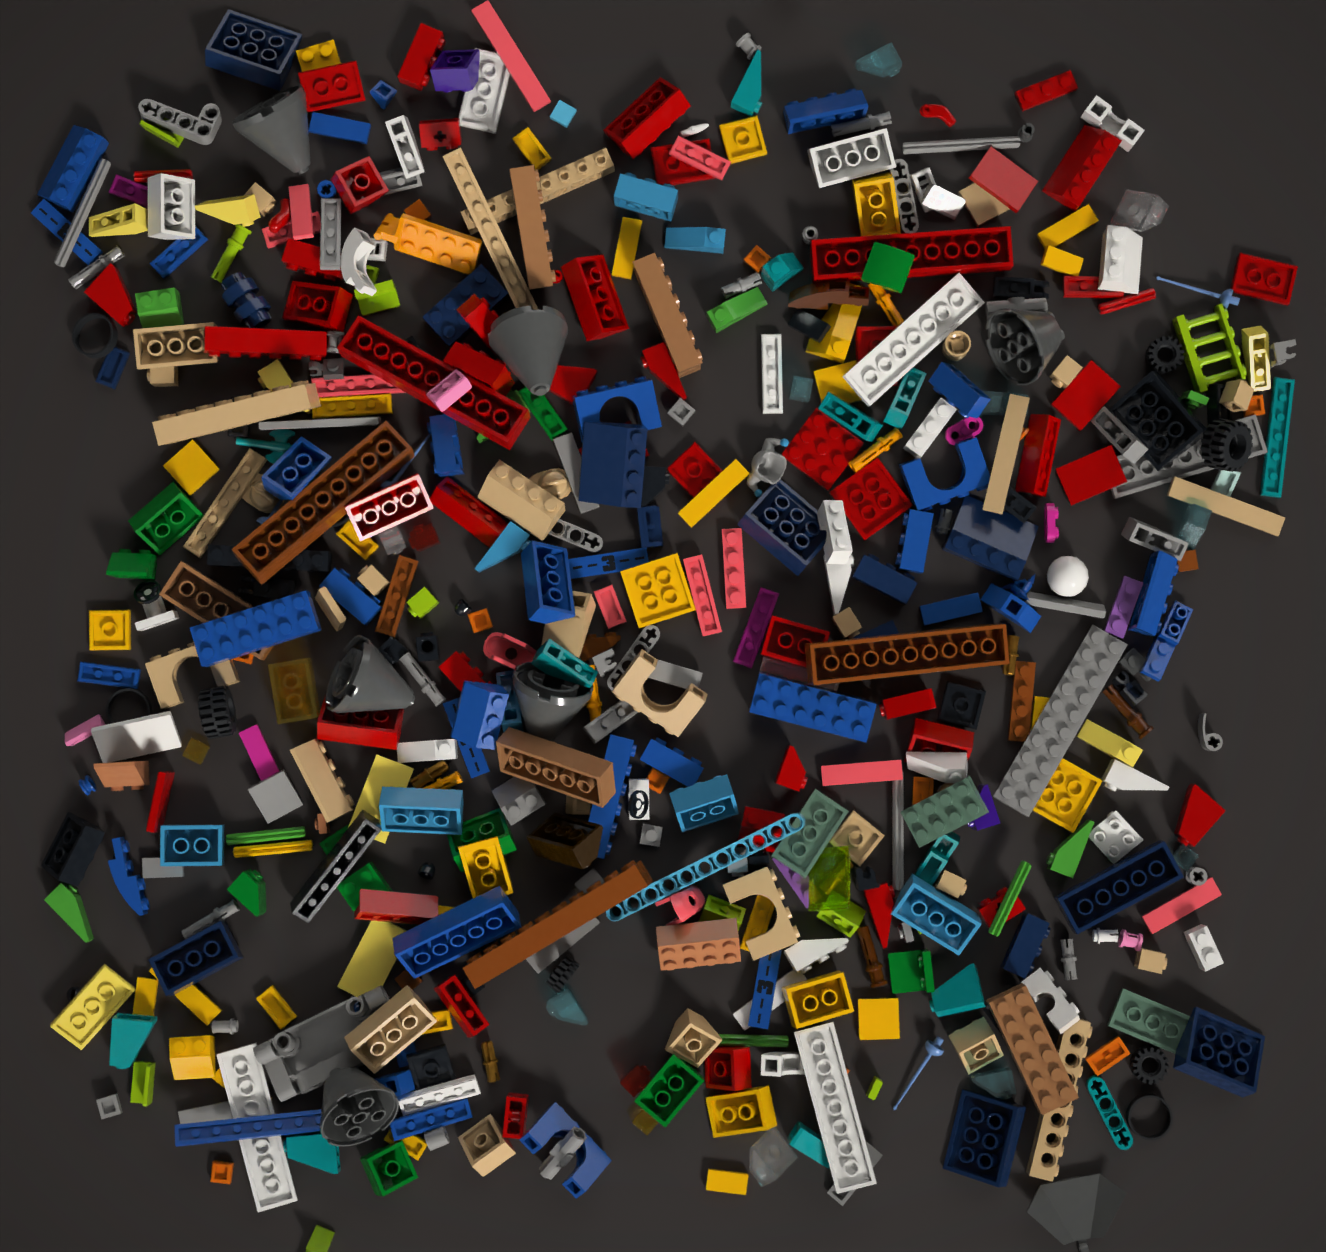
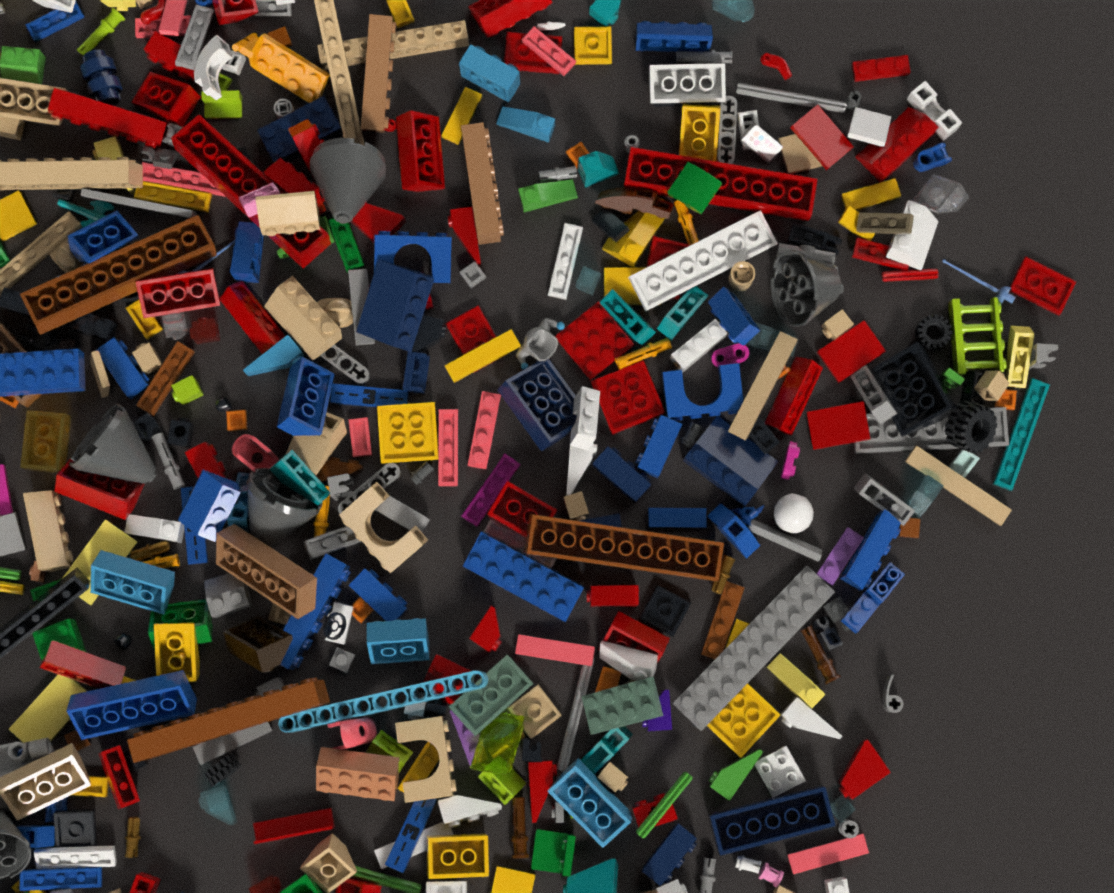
camera: 10 degrees right, 5 degrees down
(443, 290) = (279, 110): none -> light grey wheel
(483, 399) = (288, 213): none -> tan slope
(646, 1010) = (293, 825): none -> red panel
(681, 627) = (421, 473): none -> dark grey pin
(1049, 156) = (869, 126): none -> white tile
(1090, 256) = (885, 223): none -> dark tan plate
(1123, 171) = (935, 157): none -> blue piece

